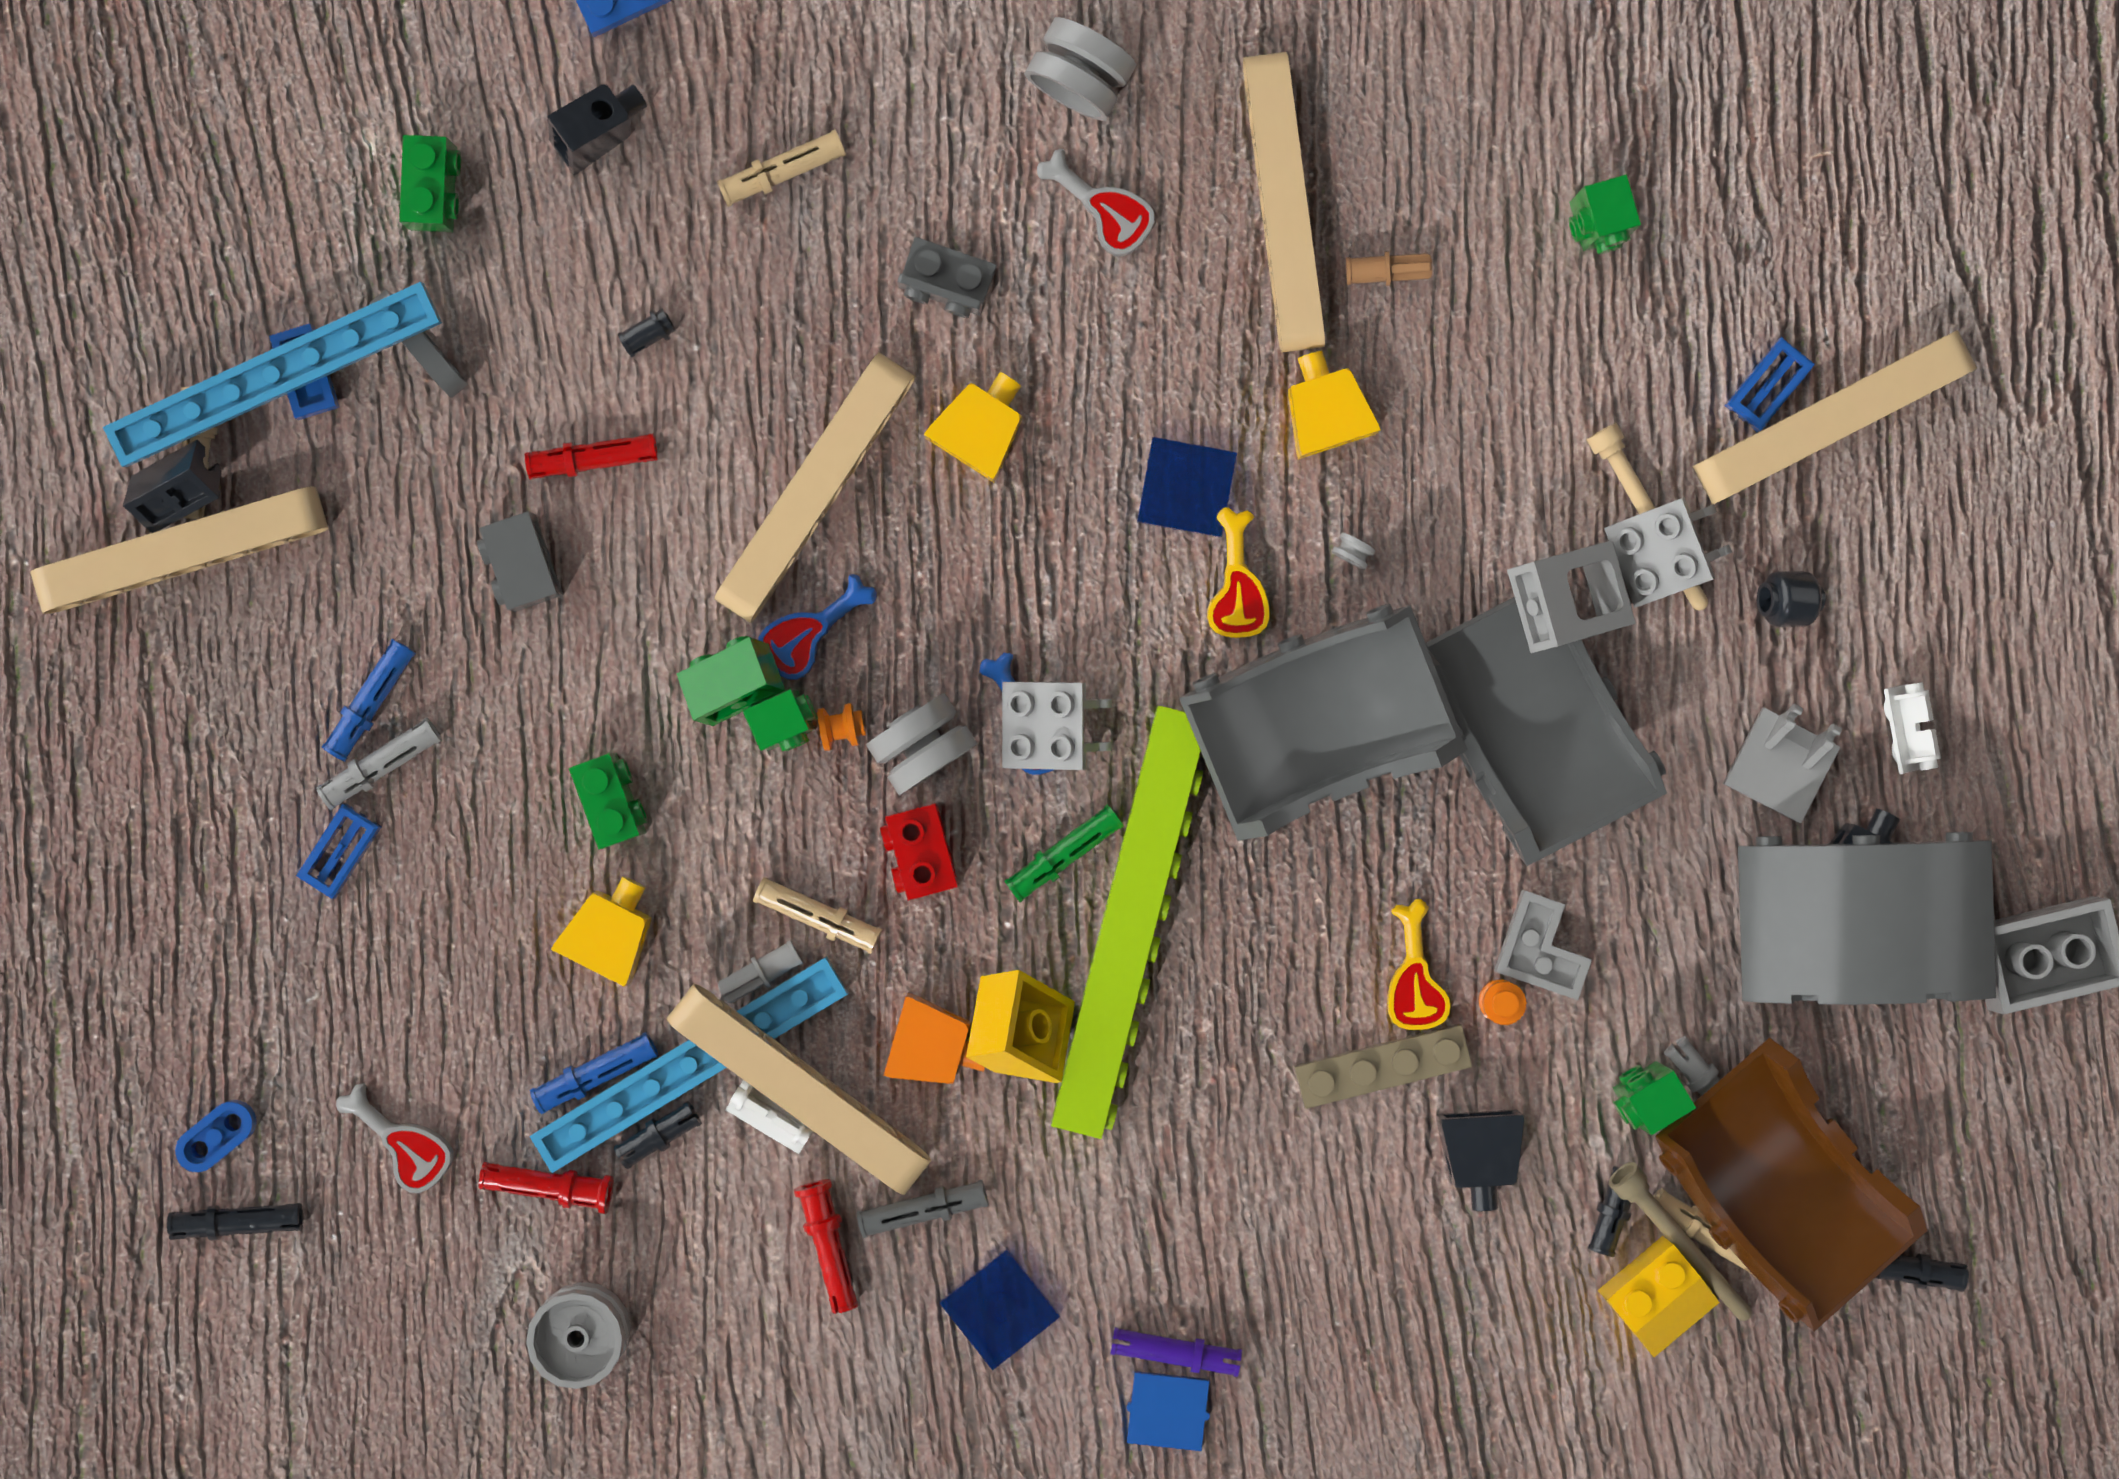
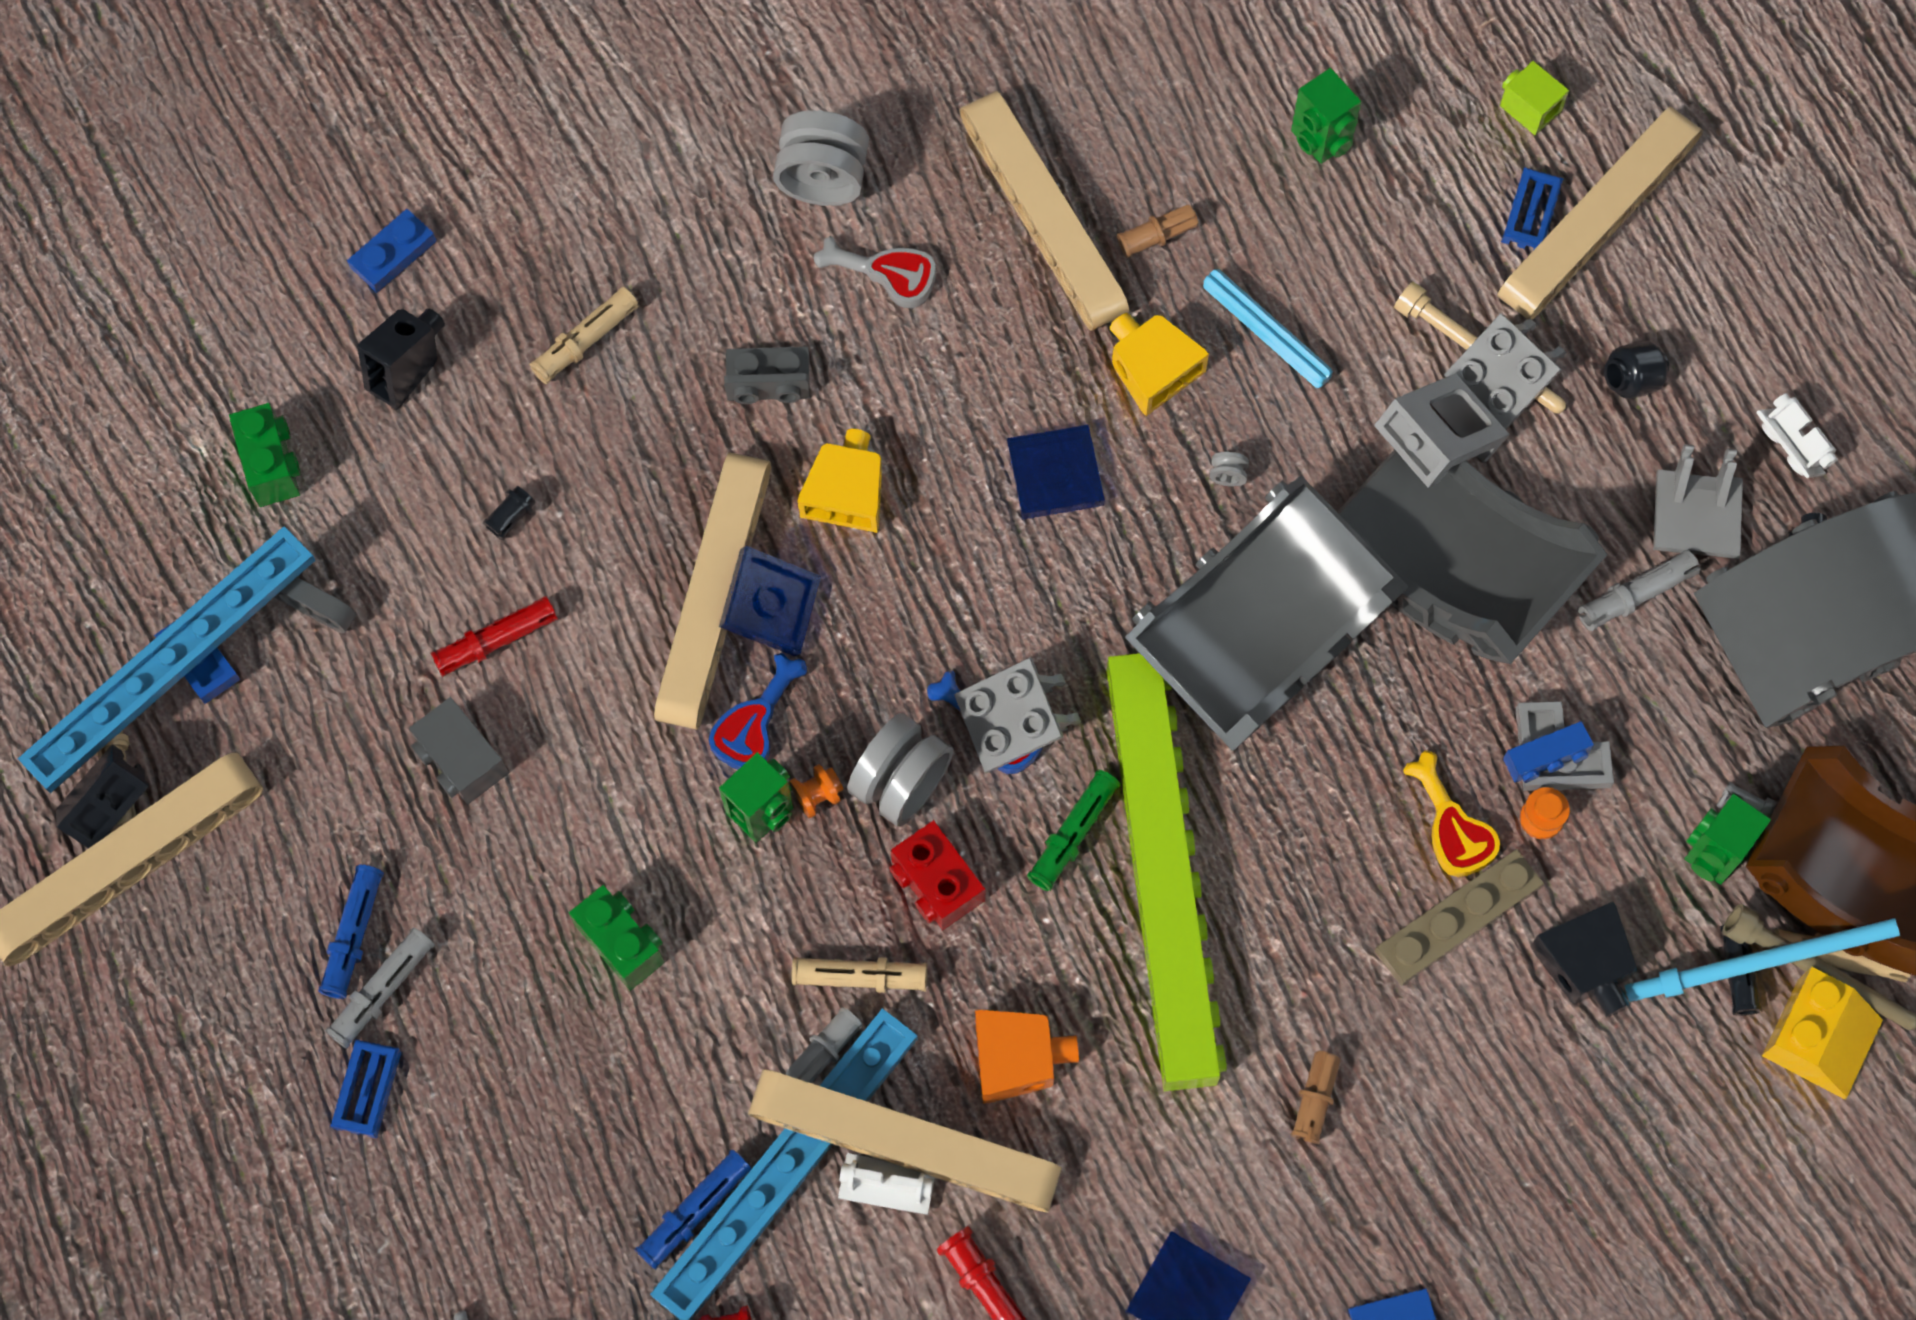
camera: 20 degrees left, 20 degrees down
(608, 933) = (659, 1065): yellow torso -> none
(657, 1135) = (779, 1248): black pin -> none
(730, 680) = (691, 781): brick -> none
(863, 522) = (770, 601): none -> clear blue tile
(923, 1208) = (1116, 1188): dark grey pin -> none
(1020, 1027) = (1097, 999): yellow slope -> none
(1176, 1352) = (1382, 1268): dark purple pin -> none
(1182, 1182) = (1316, 1097): none -> medium nougat axle
(1241, 603) = (1146, 549): yellow piece -> none
(1453, 414) = (1268, 328): none -> medium azure axle
(1528, 953) = (1548, 753): none -> blue piece
(1546, 1202) = (1673, 982): none -> medium azure bar
(1671, 823) = (1625, 597): none -> light grey pin
(1824, 263) = (1533, 97): none -> lime brick

